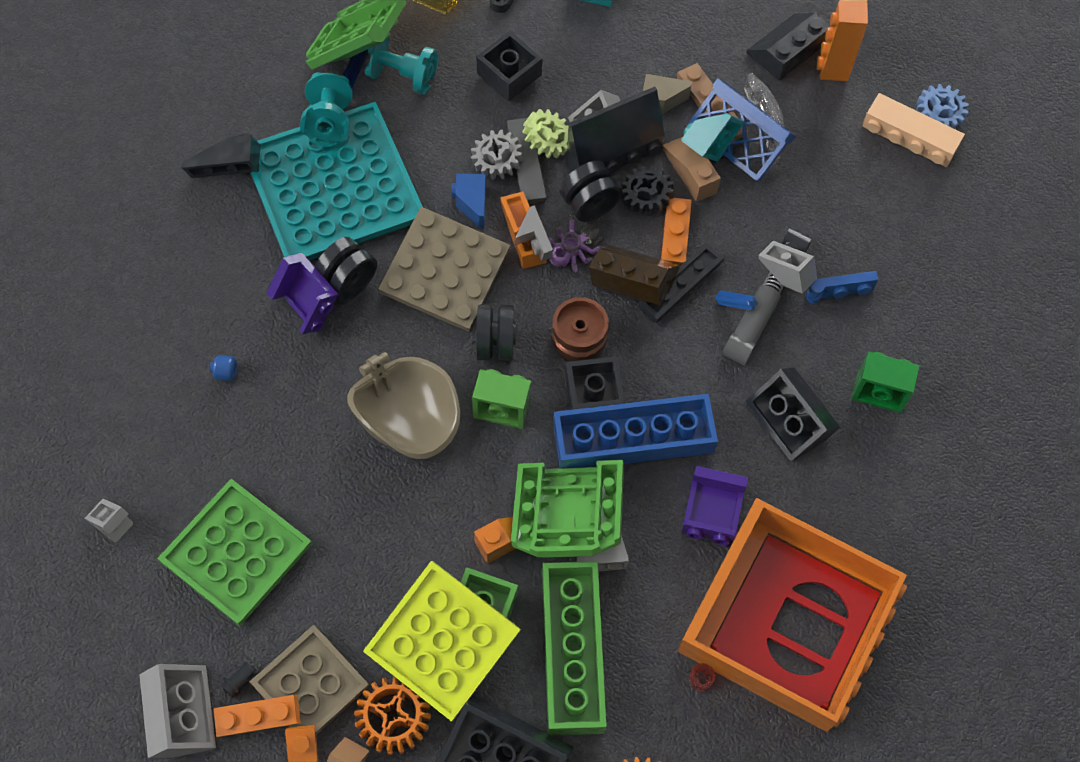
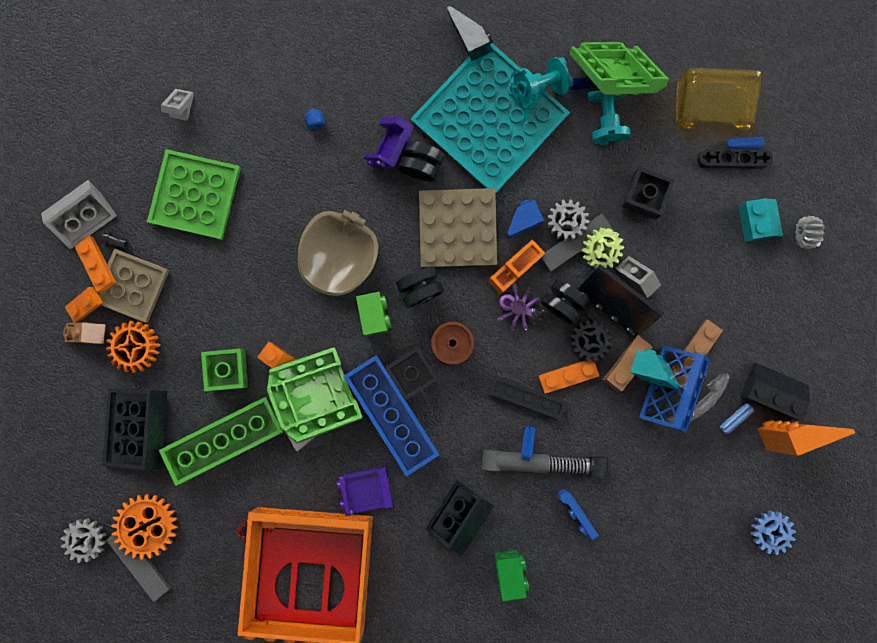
camera: 65 degrees right, 20 degrees up
(442, 640) = (184, 356): neon yellow plate -> none
(533, 229) = (511, 275): light grey slope -> none
(632, 274) = (516, 361): dark brown slope -> none
(670, 90) = (681, 316): dark tan slope -> none
(789, 266) = (569, 471): light grey slope -> none
(801, 91) = (737, 418): none -> medium blue axle
(913, 130) = (741, 517): light nougat brick -> none

